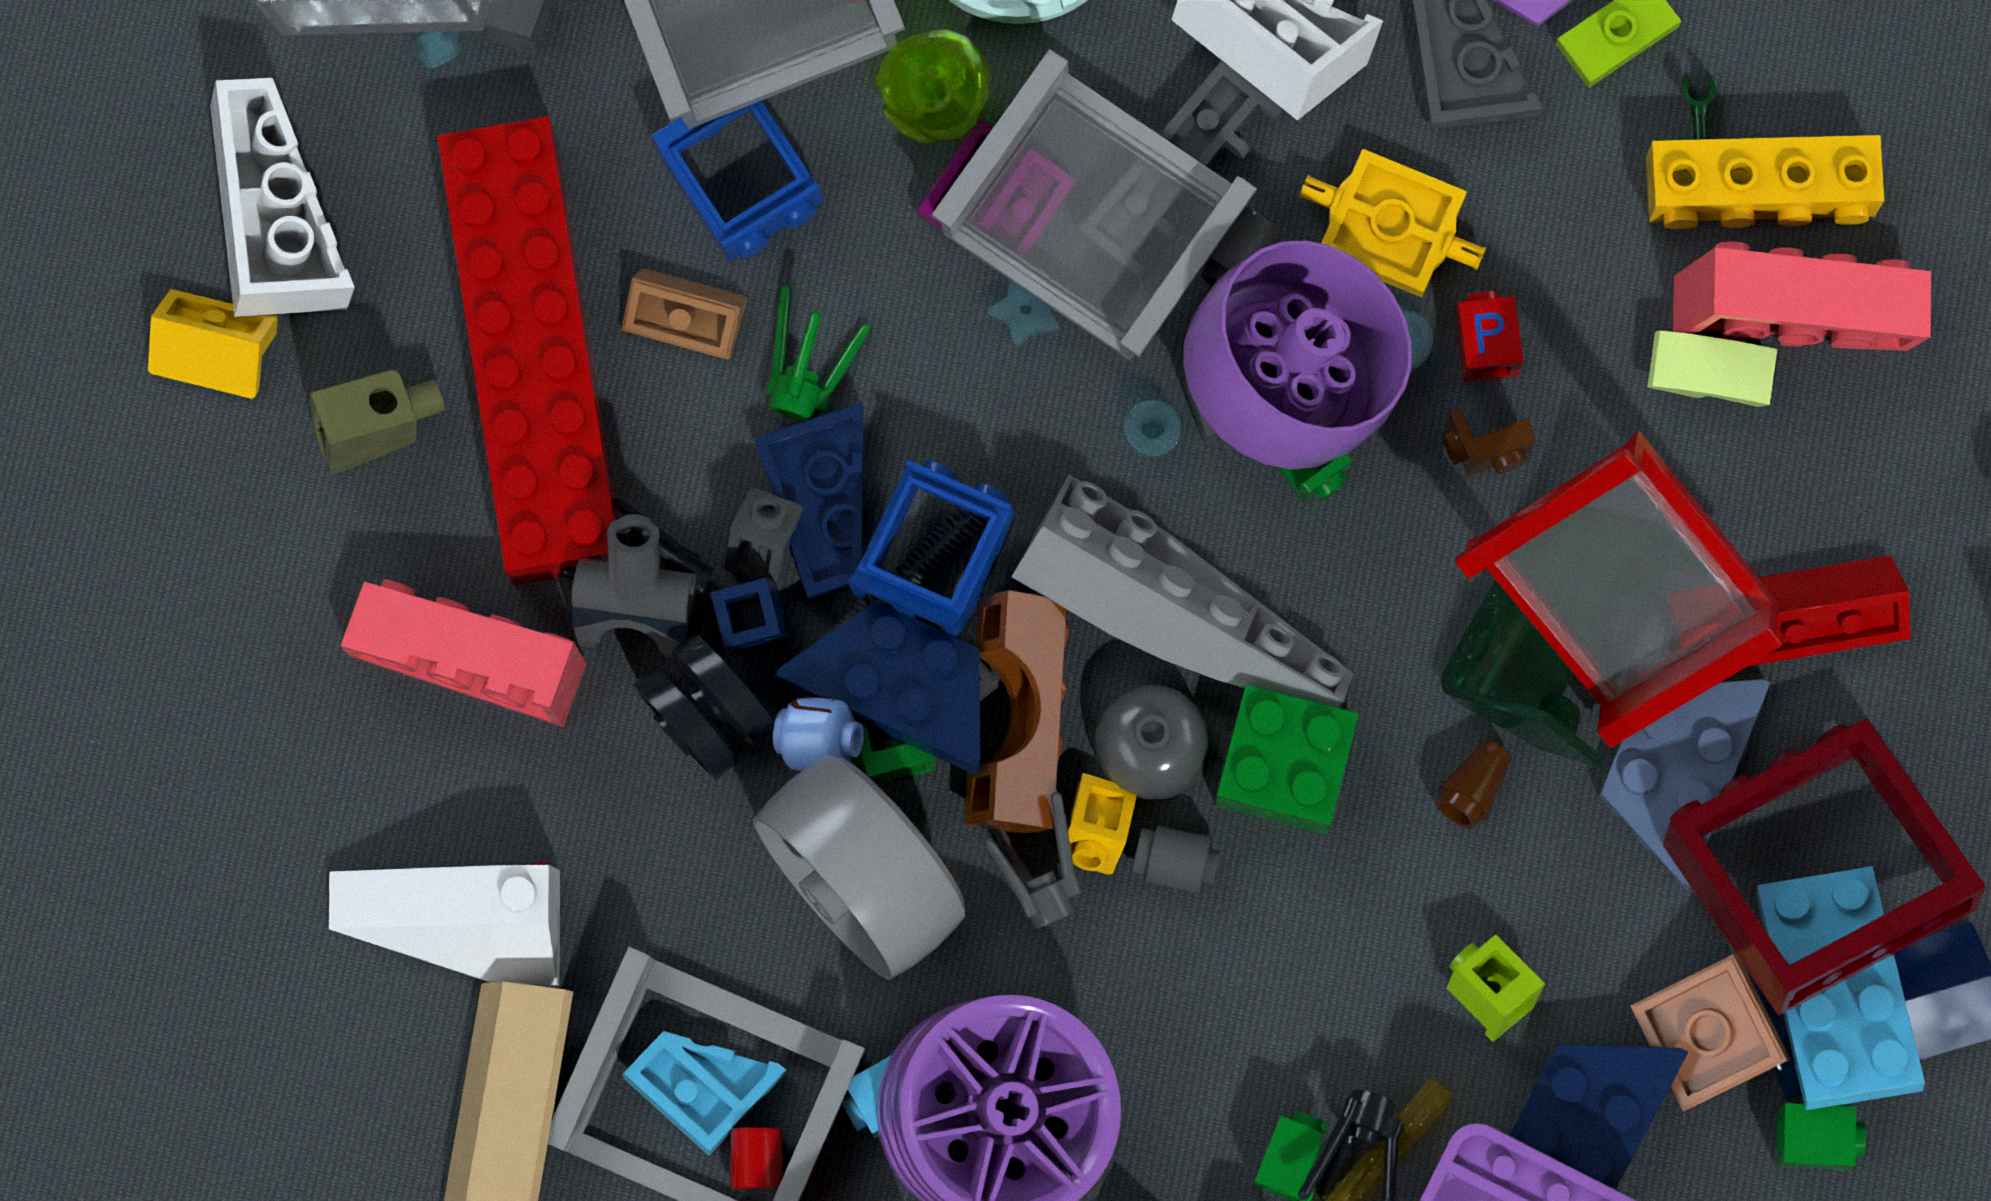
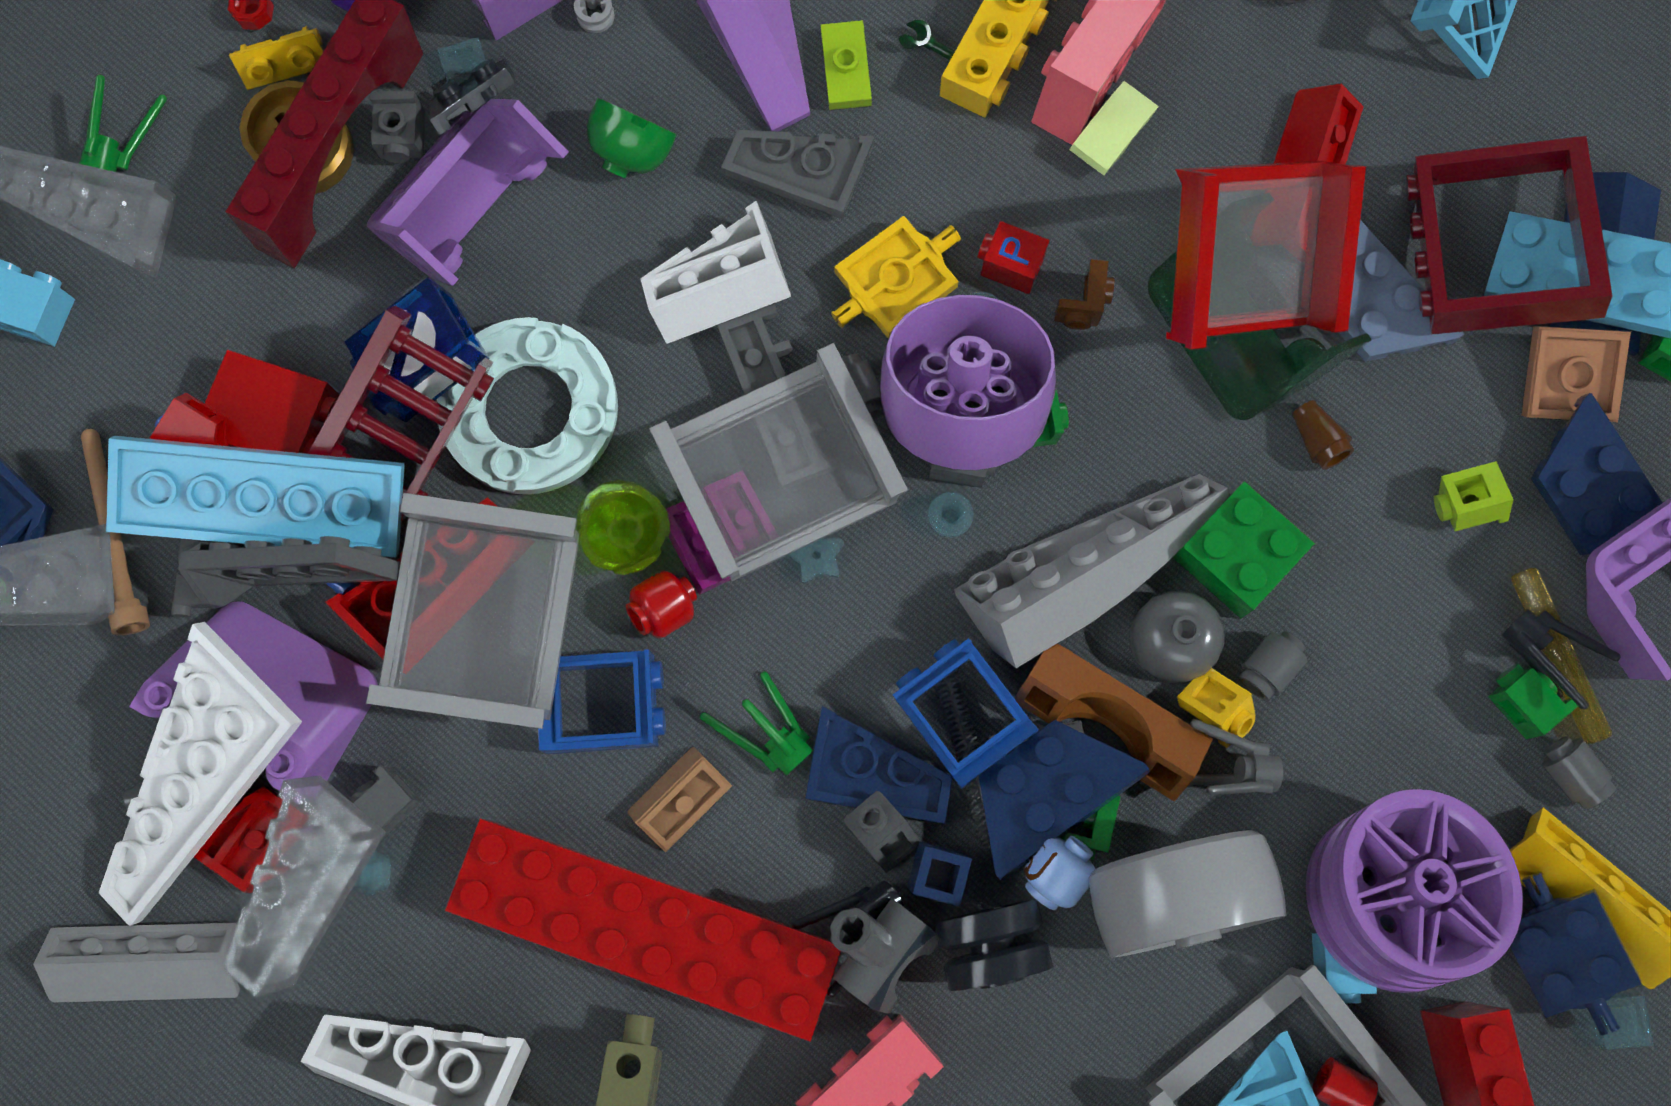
camera: 65 degrees left, 0 degrees up
(878, 176) = (661, 604): none -> red head

